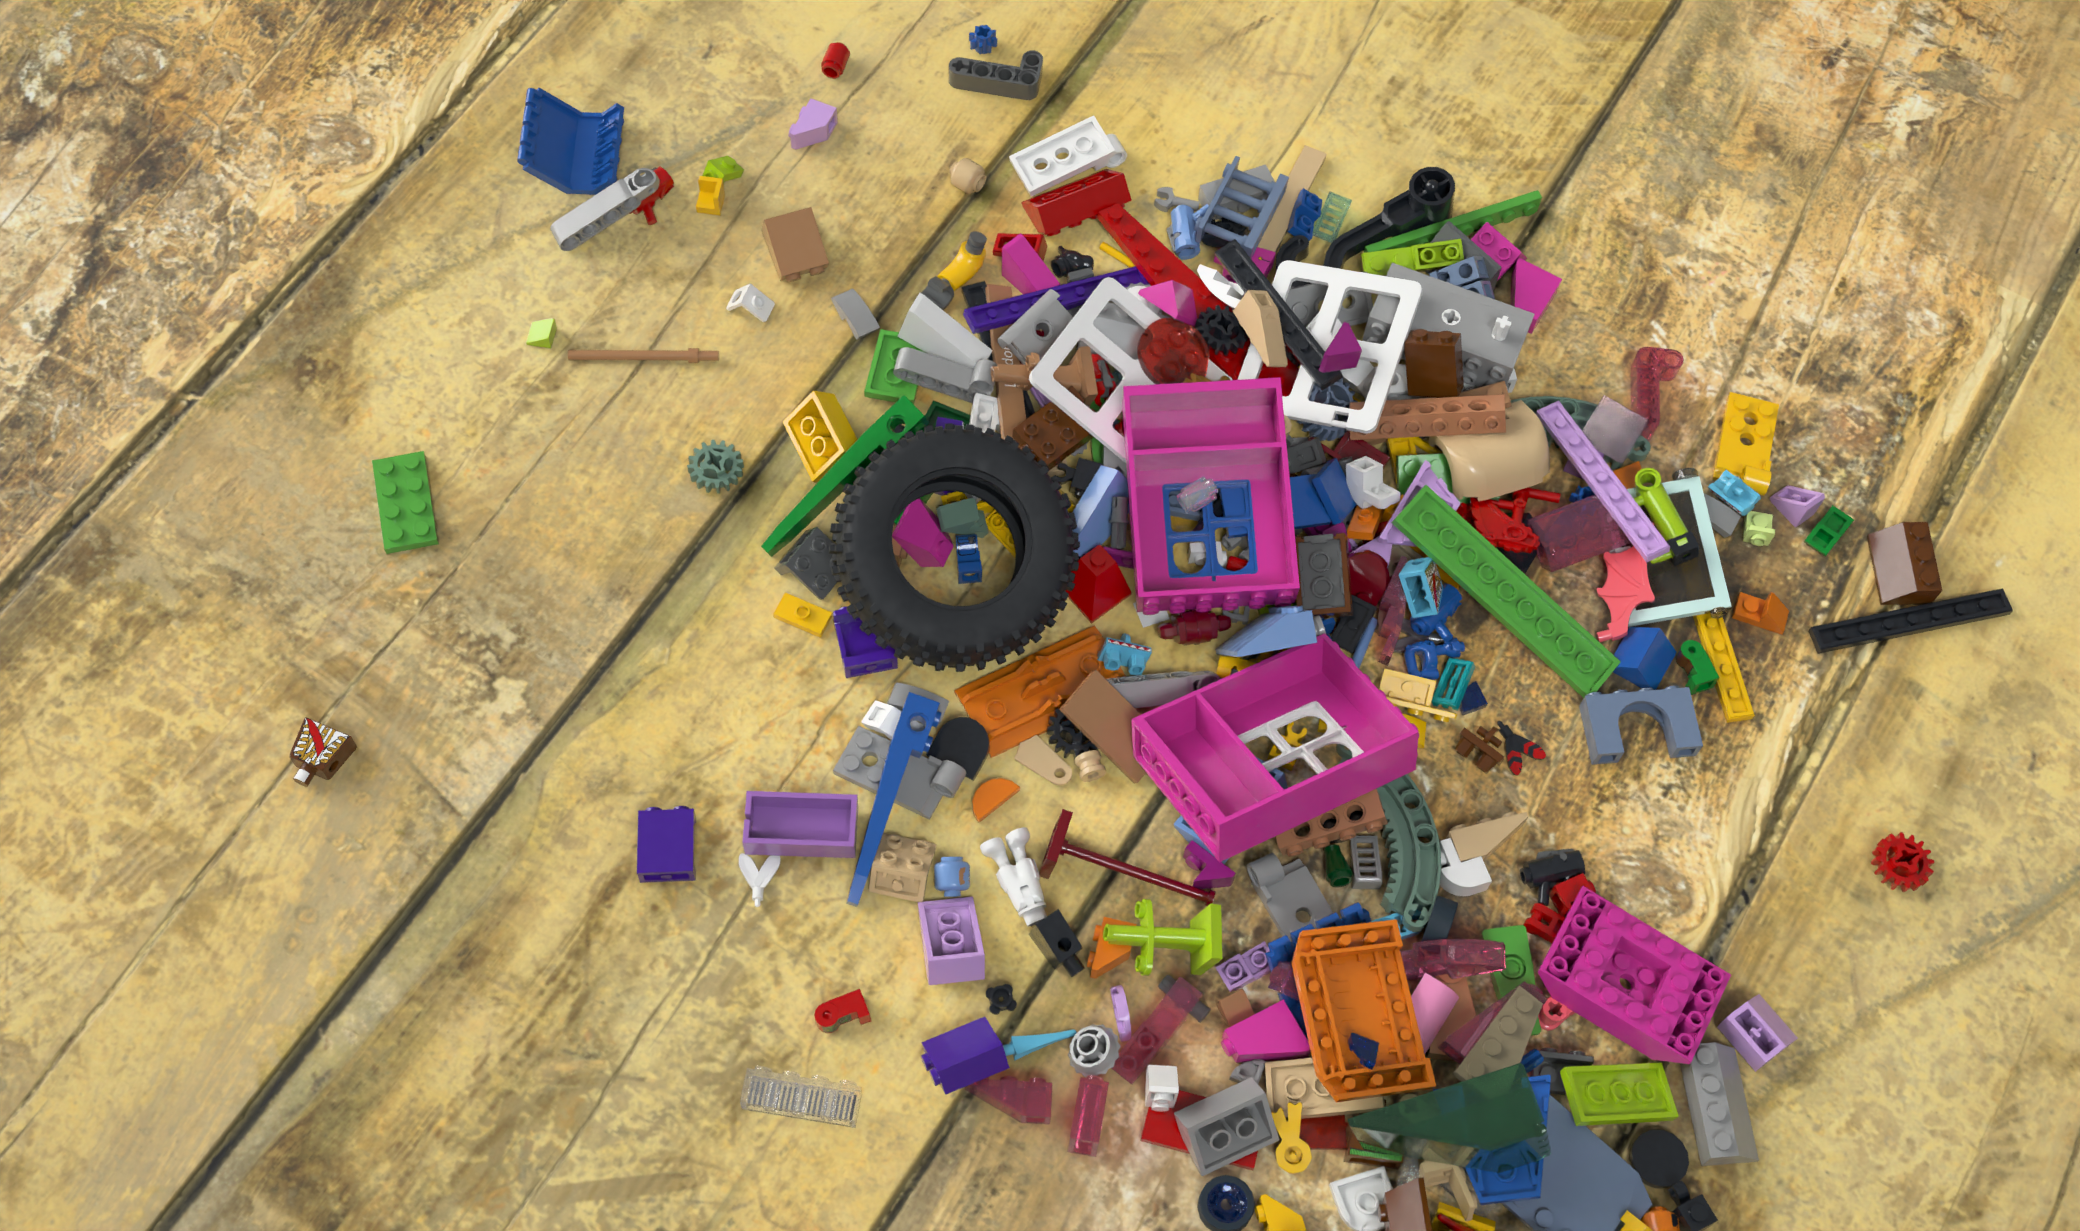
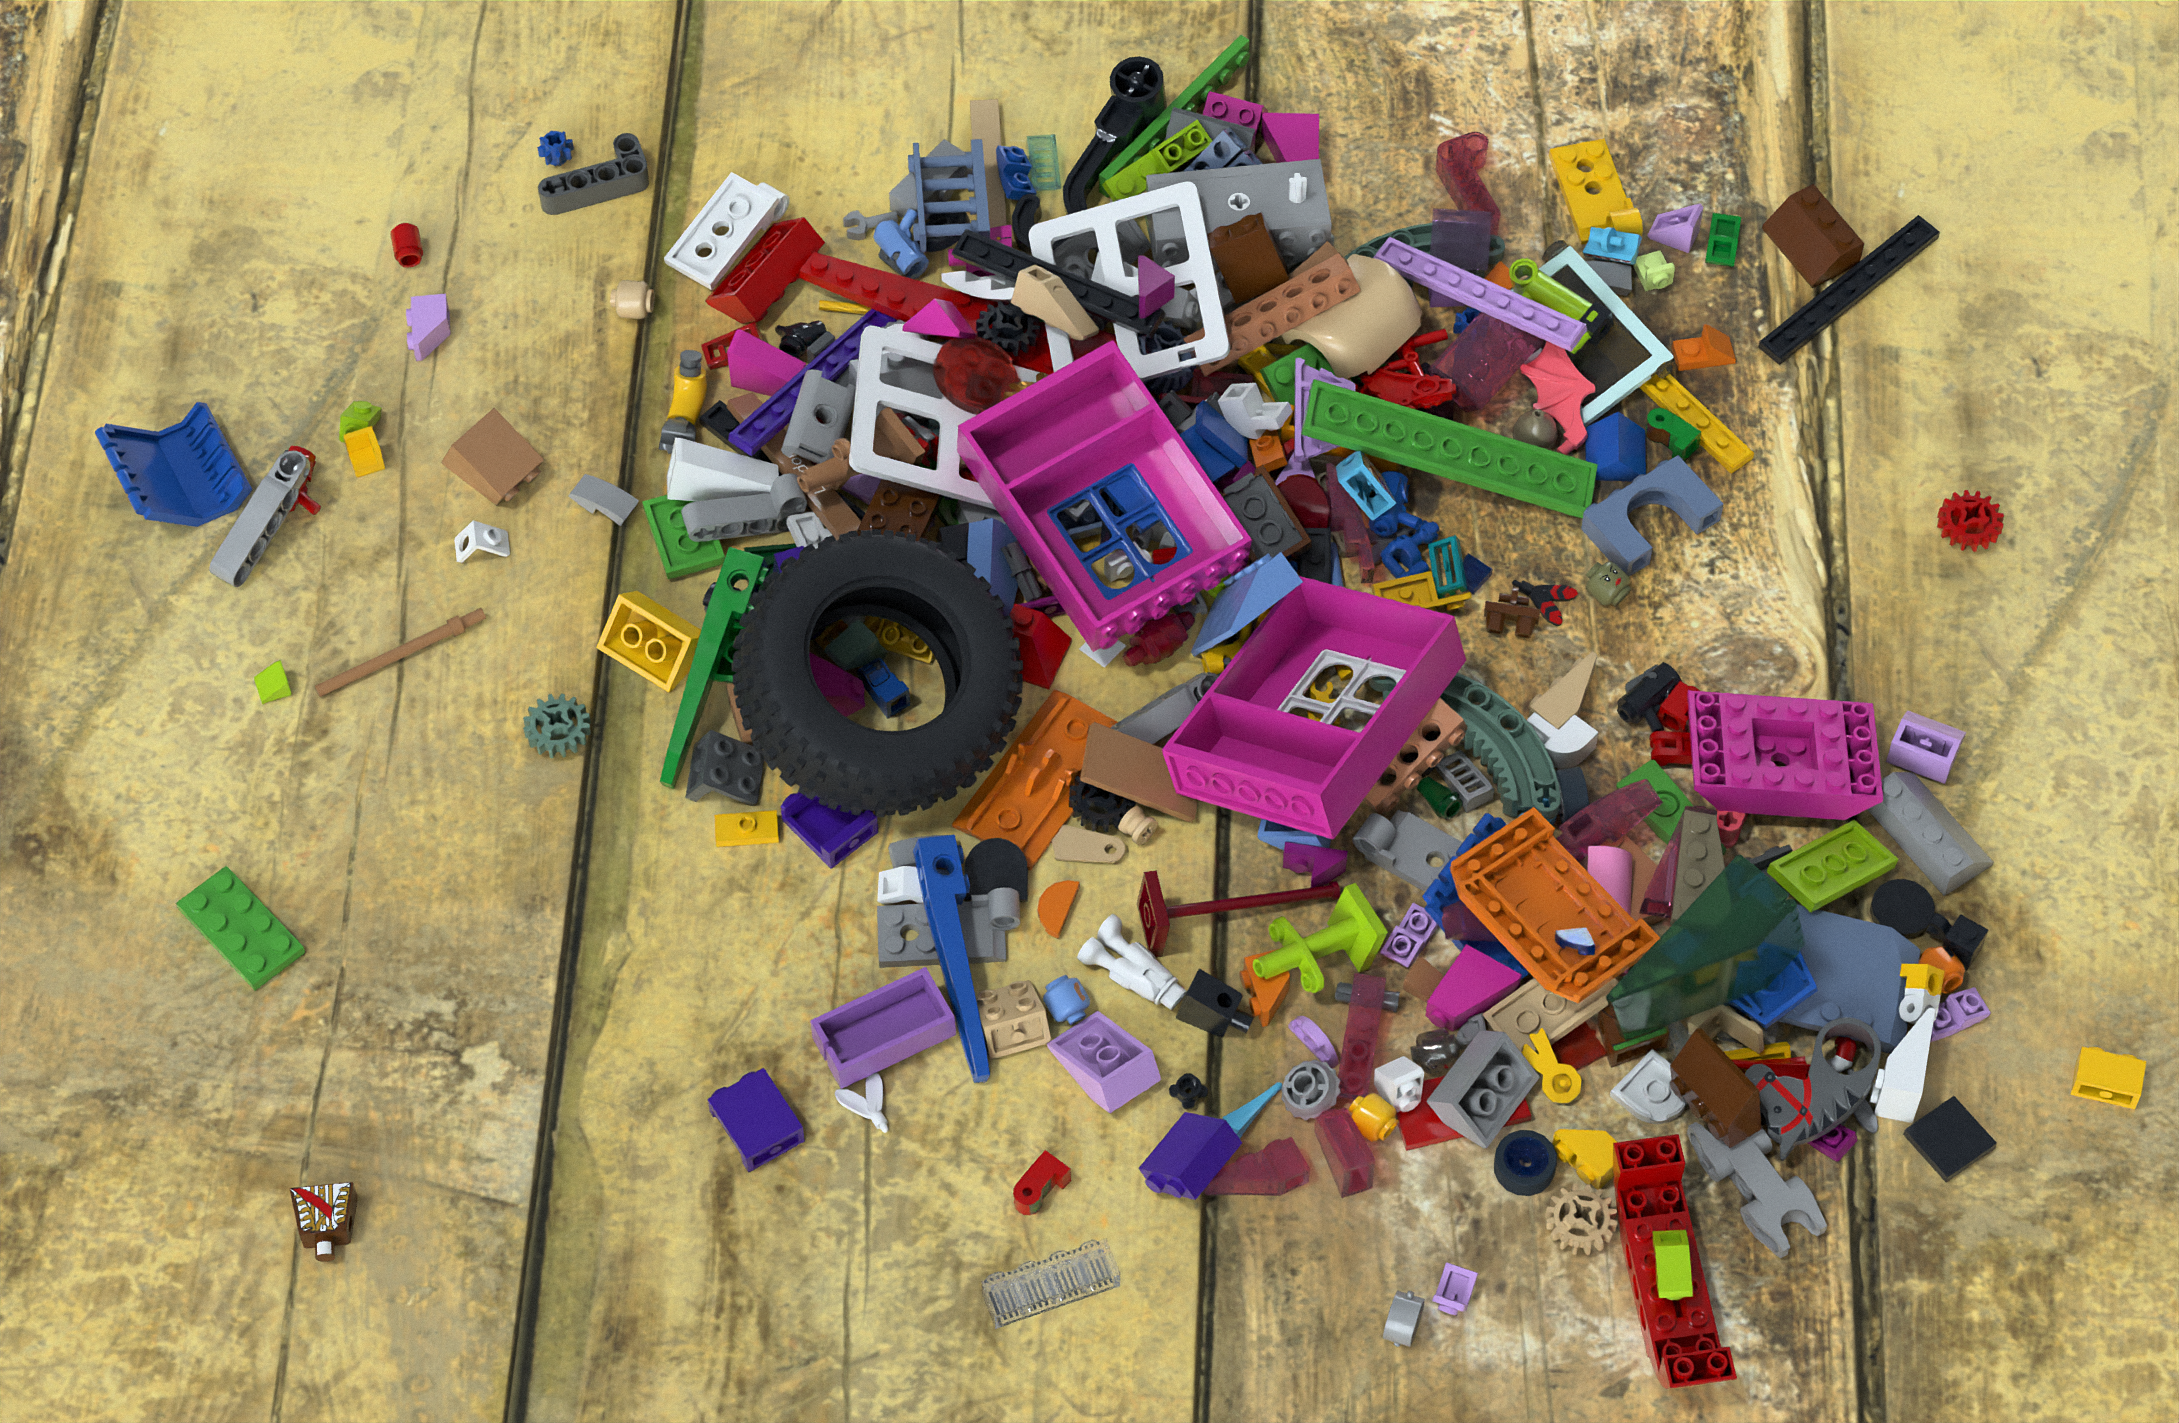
camera: 25 degrees left, 5 degrees down
(1123, 653) = (1104, 699): medium azure hips -> none
(1127, 1101) = (1373, 1117): none -> yellow head
(1197, 494) = (1099, 496): clear brick -> none
(1209, 1073) = (1435, 1051): none -> clear smoke head
(1573, 762) = (1608, 583): none -> olive head
(1587, 610) = (1536, 429): none -> dark tan helmet

